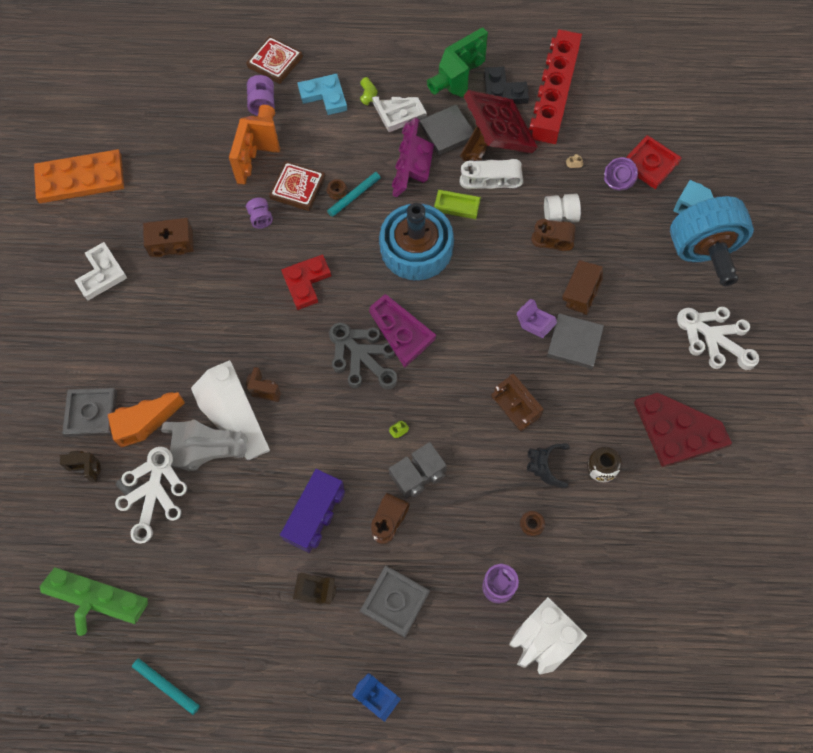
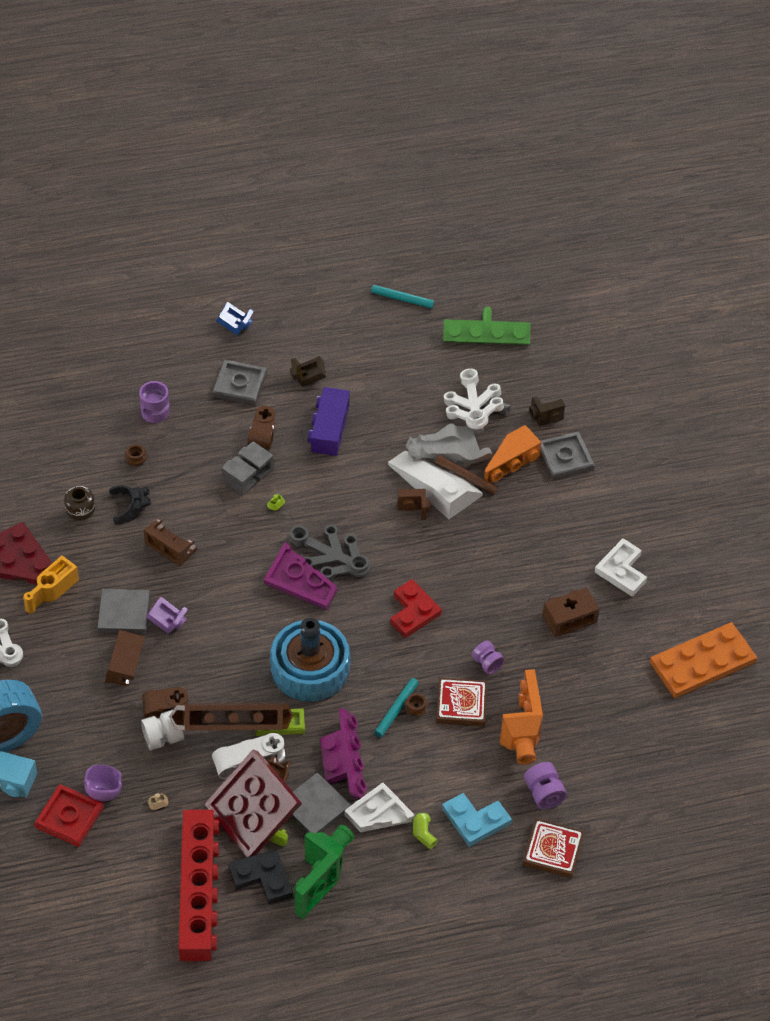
camera: 160 degrees right, 15 degrees down
(199, 406) = (467, 475): none -> reddish brown bar
(509, 193) = (231, 716): none -> reddish brown brick
(547, 637) = (107, 382): white plate -> none
(636, 384) = (51, 583): none -> light orange piece

